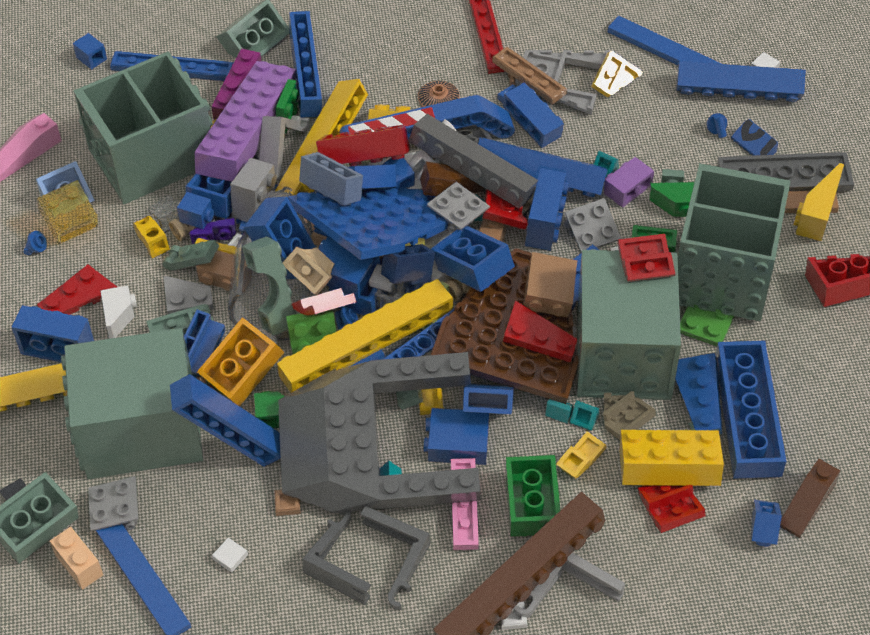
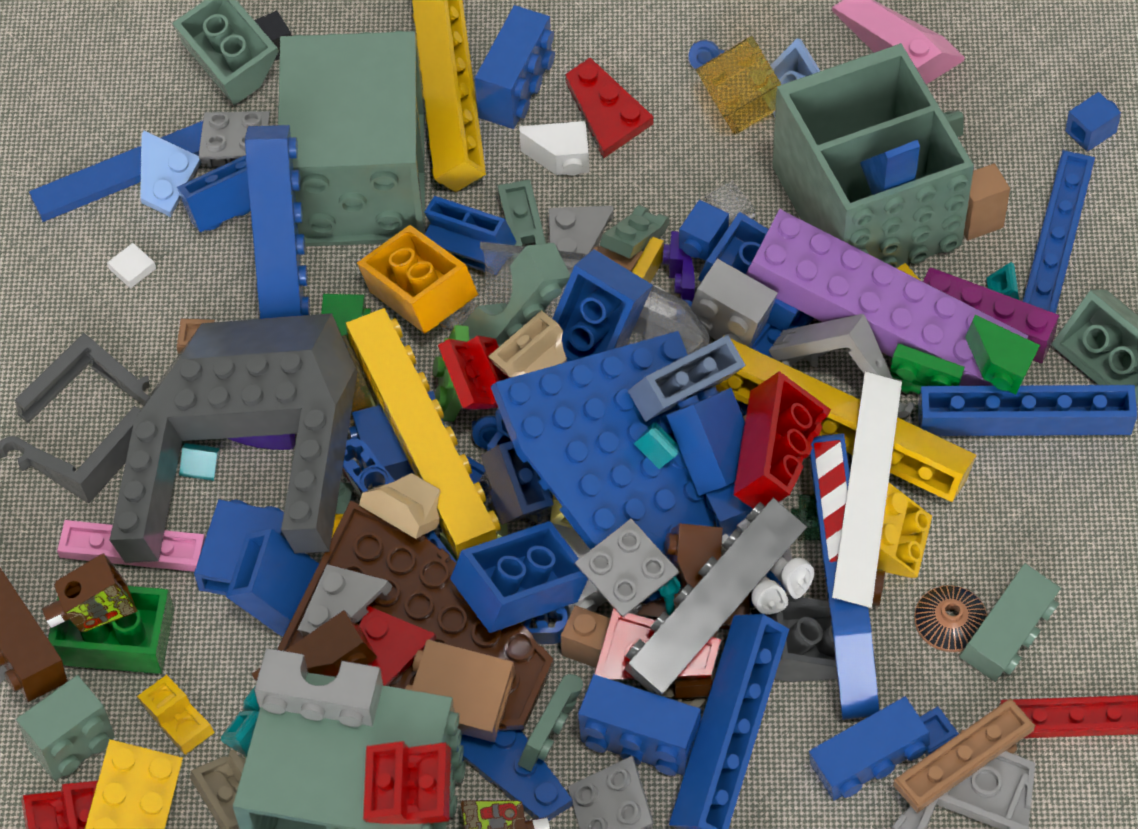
camera: 100 degrees right, 5 degrees up
(76, 558) = (164, 95): light nougat brick -> none
(149, 544) = (162, 171): none -> light blue wing
(151, 236) = (684, 190): yellow leg -> none
(165, 491) = (217, 195): none -> blue brick
(173, 86) = (892, 167): none -> blue slope
(212, 84) = (1004, 281): none -> teal slope
(282, 58) = (1000, 354): none -> green slope
(374, 195) = (657, 445): none -> teal slope
(379, 110) = (867, 490): none -> white sticker
(428, 326) = (405, 504): none -> tan slope
(442, 64) = (1011, 623): none -> sand green brick
(505, 350) = (340, 591): none -> light grey wing
(530, 484) = (90, 596): none -> reddish brown torso
(545, 344) = (331, 644): none -> reddish brown slope
(563, 250) = (551, 721): none -> sand green plate
(598, 322) = (348, 698): none -> light grey arch
(618, 499) = (66, 728): none -> sand green brick

